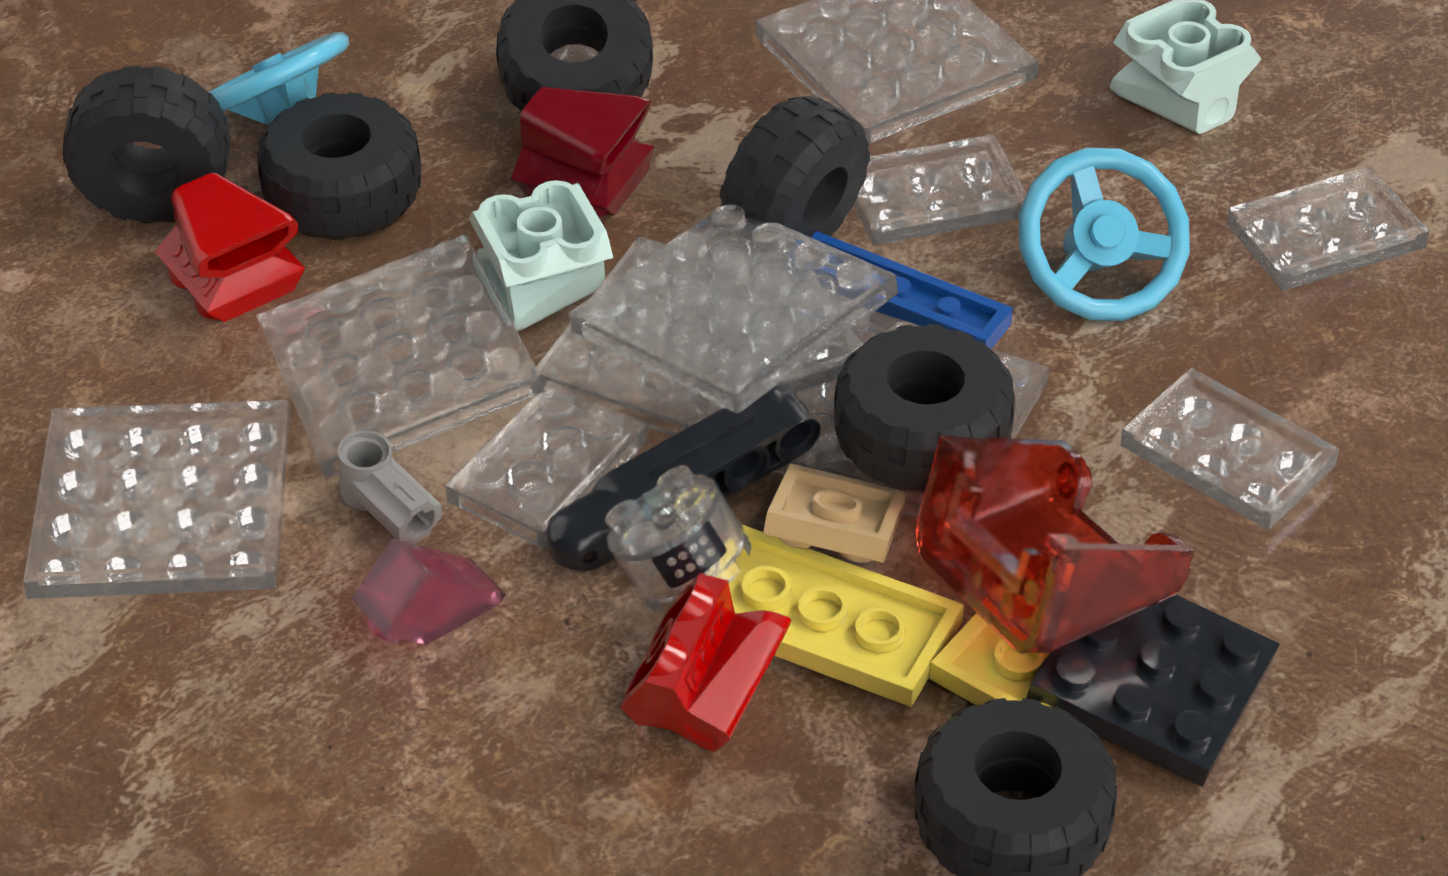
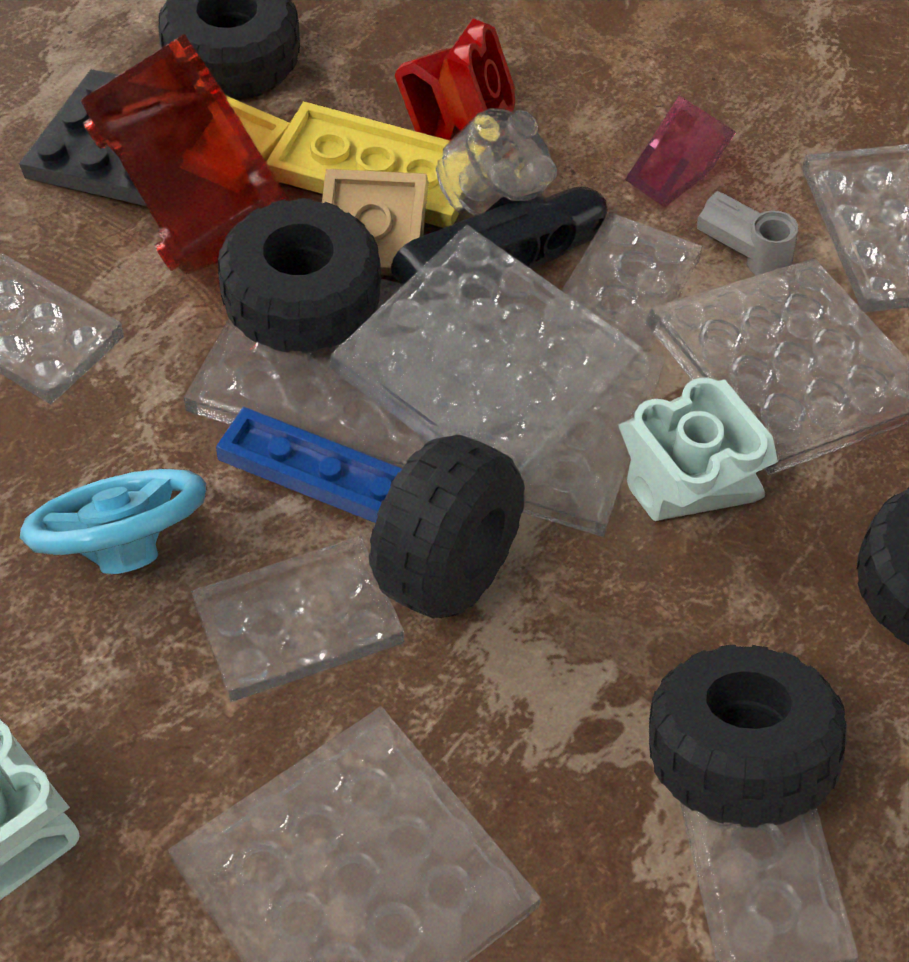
camera: 170 degrees right, 10 degrees up
(584, 142) = (690, 604): dark red piece -> none

